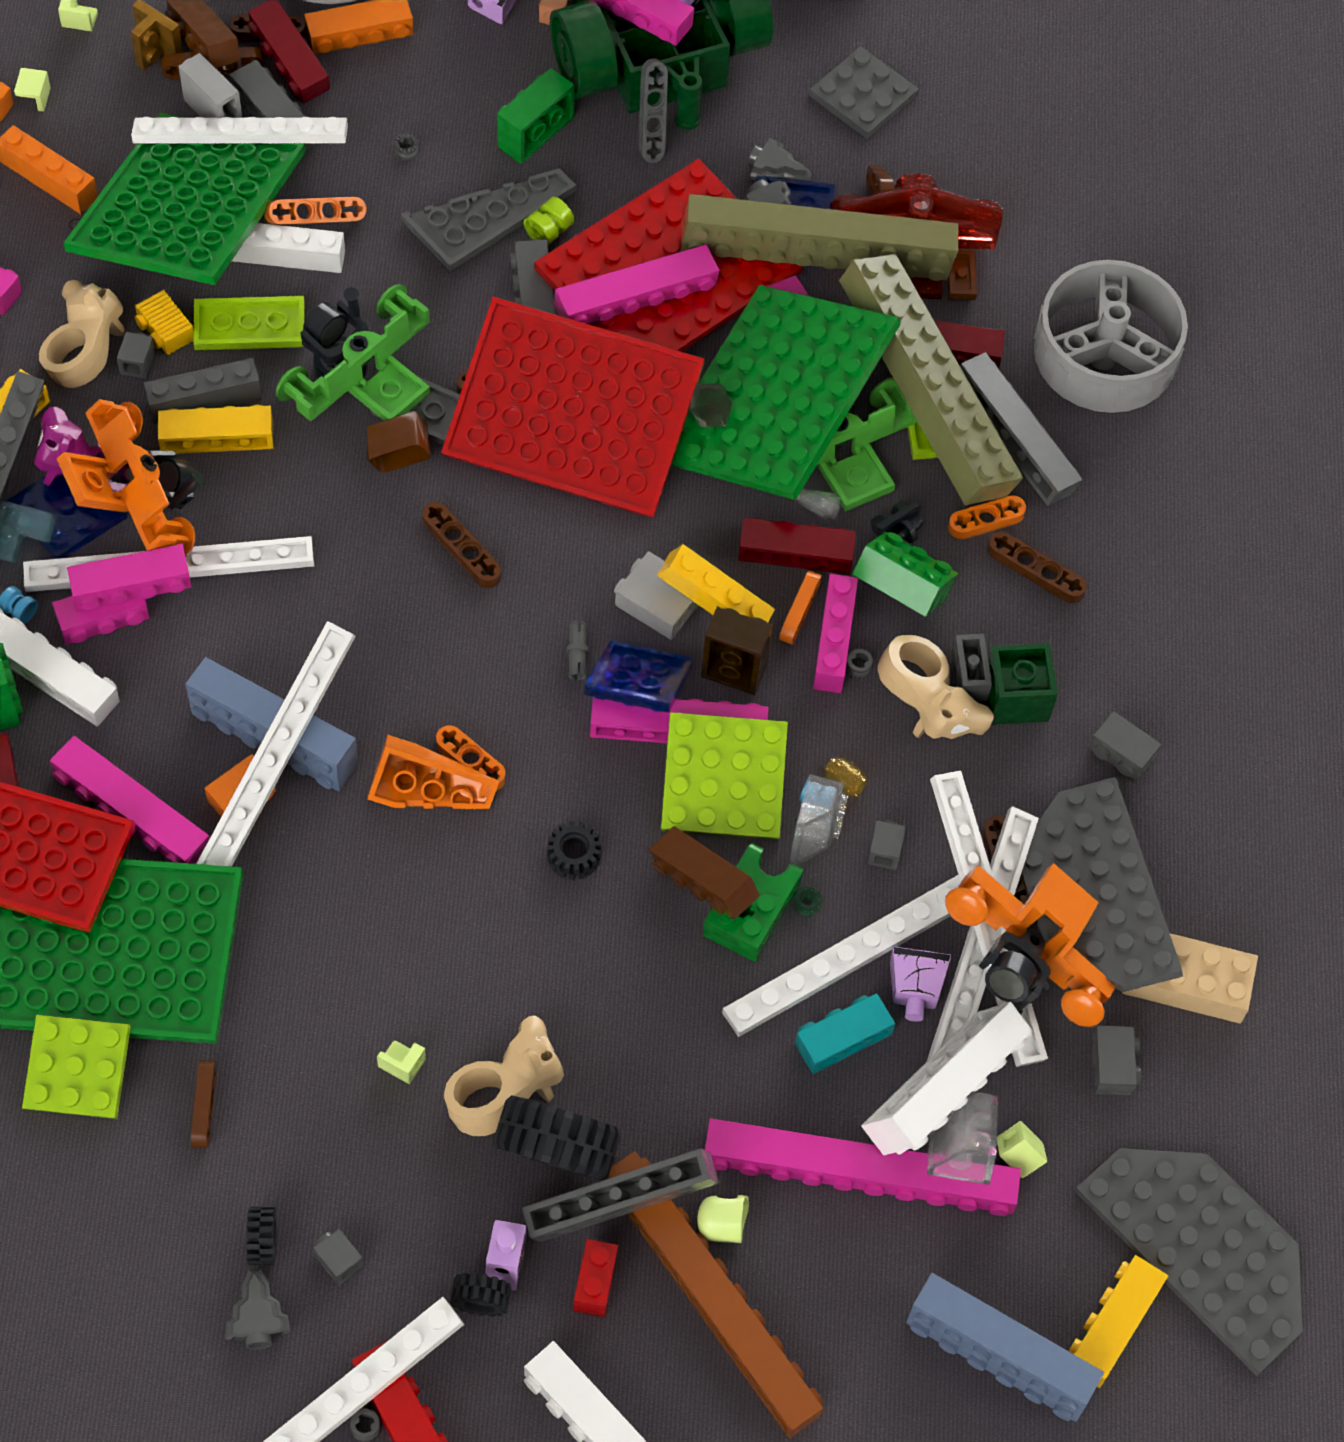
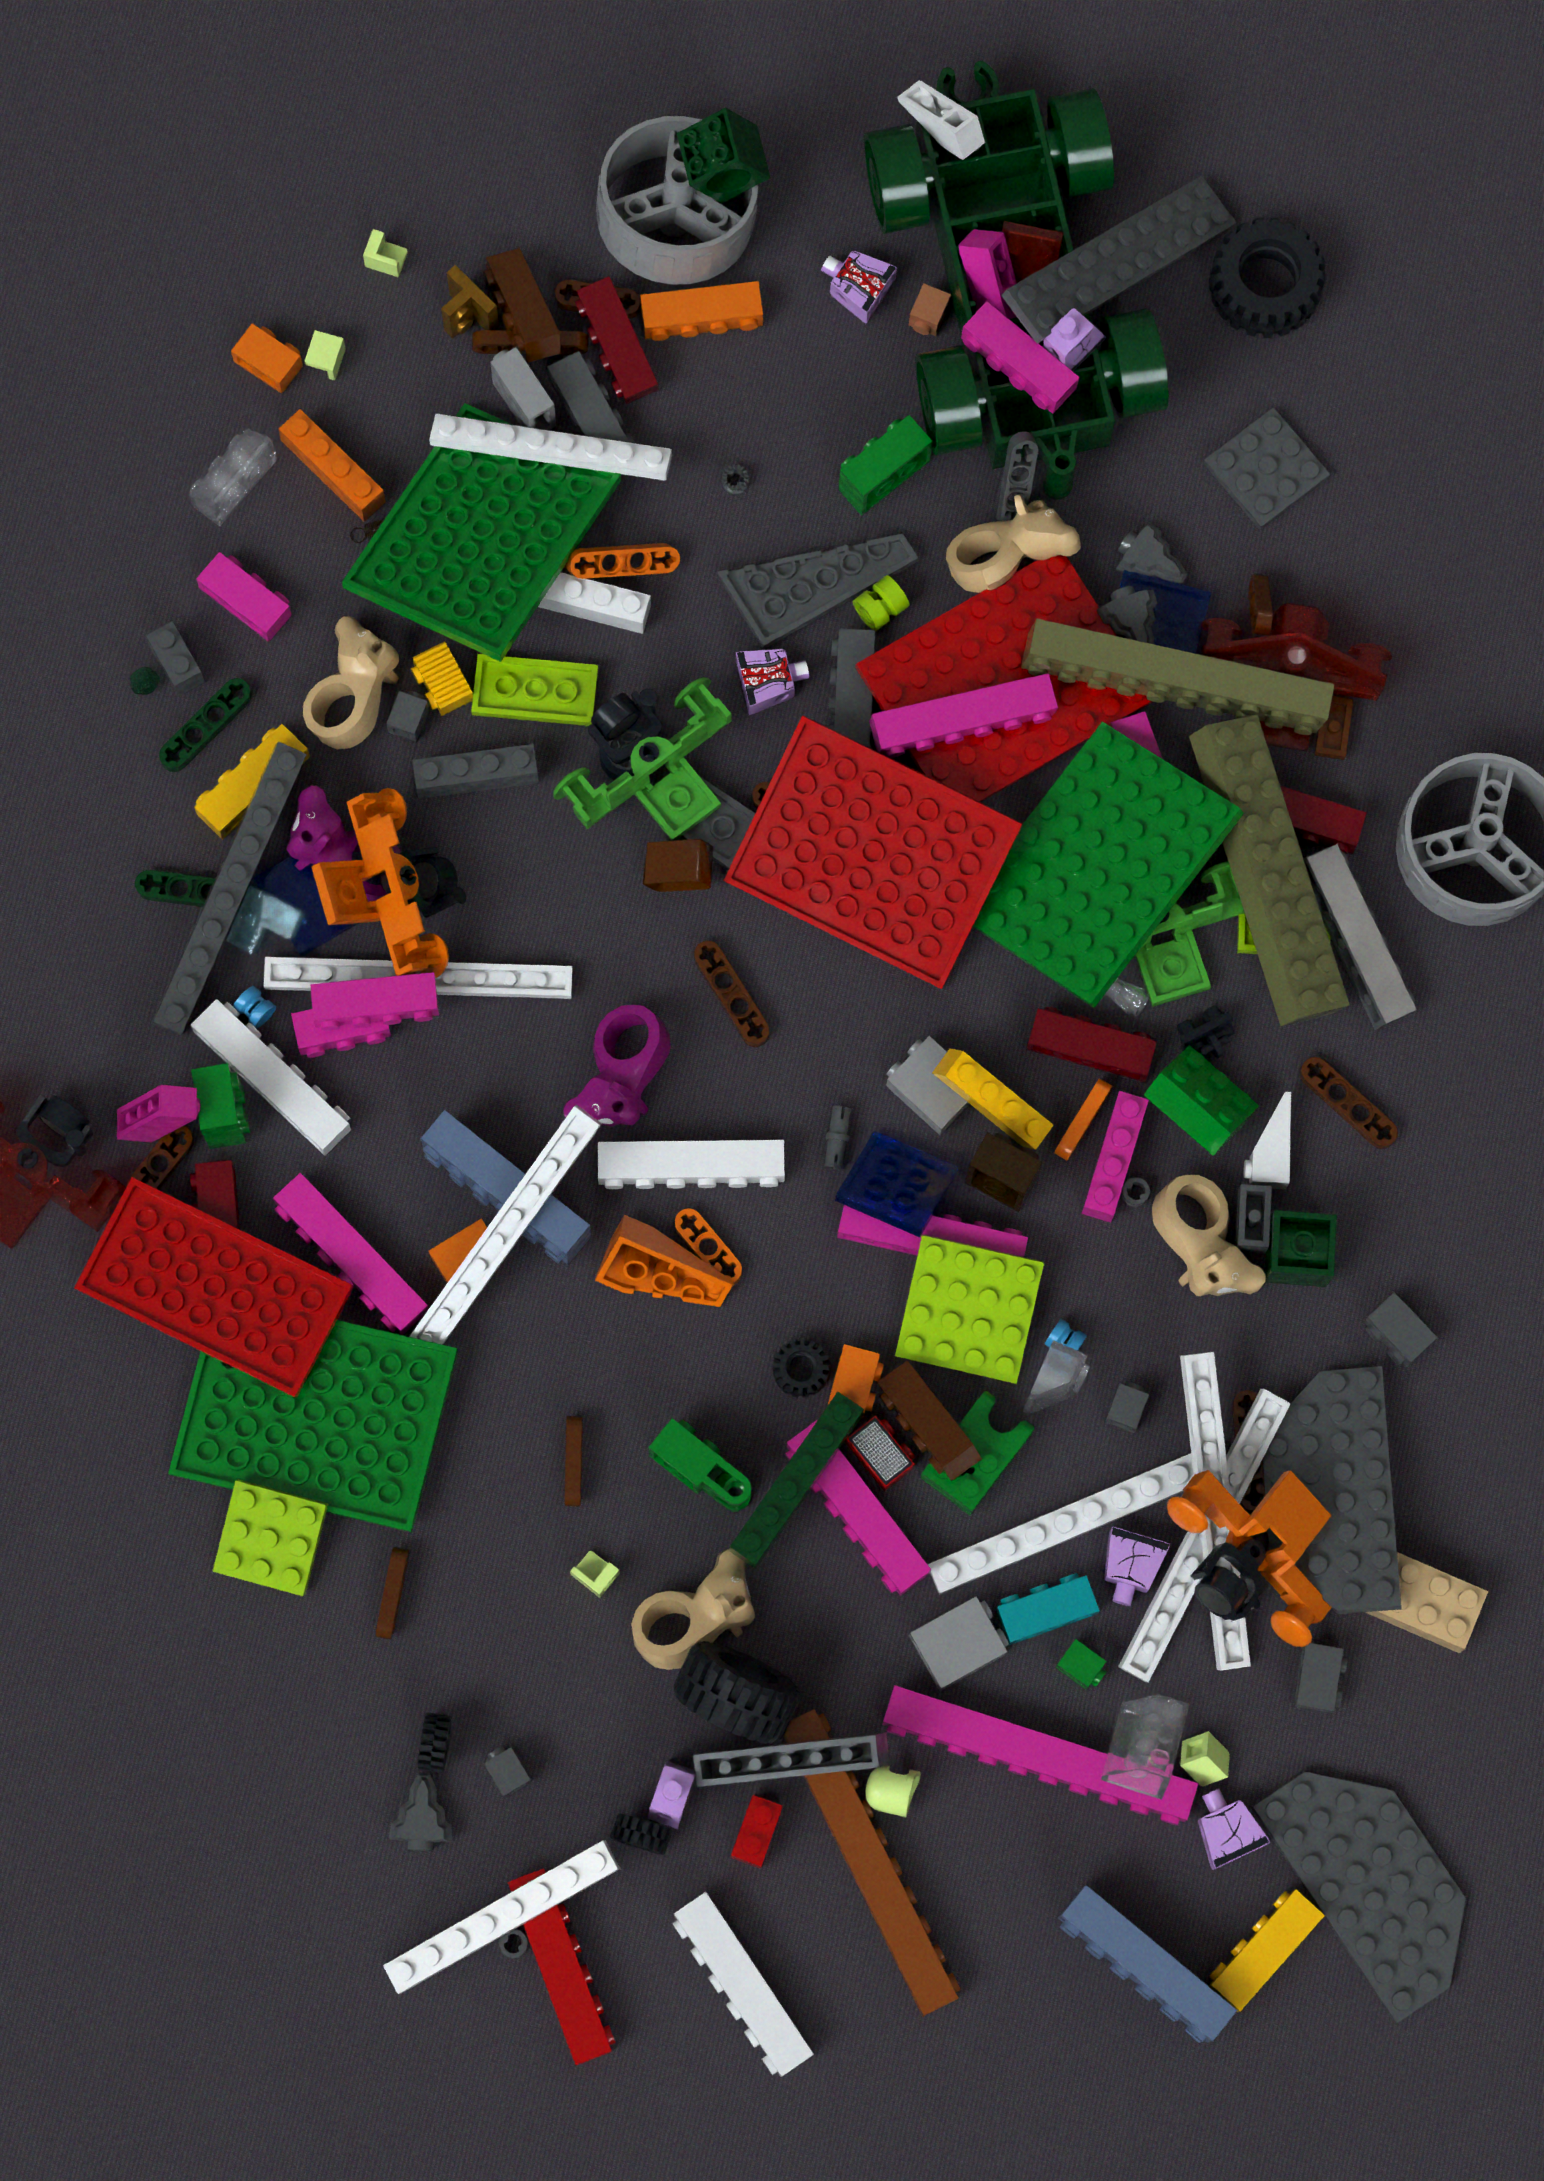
camera: 10 degrees right, 15 degrees up
(215, 429) = (484, 820): yellow brick -> none
(367, 960) = (573, 1460): none -> reddish brown beam
(372, 618) = (616, 1091): none -> magenta animal
(444, 686) = (691, 1162): none -> white brick
(457, 290) = (768, 677): none -> torso
(490, 944) = (699, 1465): none -> green brick
(585, 940) = (796, 1480): none -> dark green brick
(626, 854) = (856, 1375): none -> orange brick
(645, 167) = (1033, 533): none -> tan animal
(648, 966) = (867, 1522): none -> dark pink brick
(661, 914) = (880, 1452): none -> brick
(710, 405) = (1021, 875): clear smoke panel -> none
(765, 1075) = (959, 1642): none -> light grey brick
(807, 893) = (1038, 1448): clear green plate -> none
(848, 773) = (1097, 1324): clear yellow brick -> none
(885, 1076) = (1082, 1665): none -> green brick
(947, 1079) = (1139, 1683): white brick -> none
(978, 526) = (1282, 1032): orange beam -> none
(978, 610) = (1271, 1156): none -> white slope
(1058, 1212) = (1229, 1830): none -> lavender torso

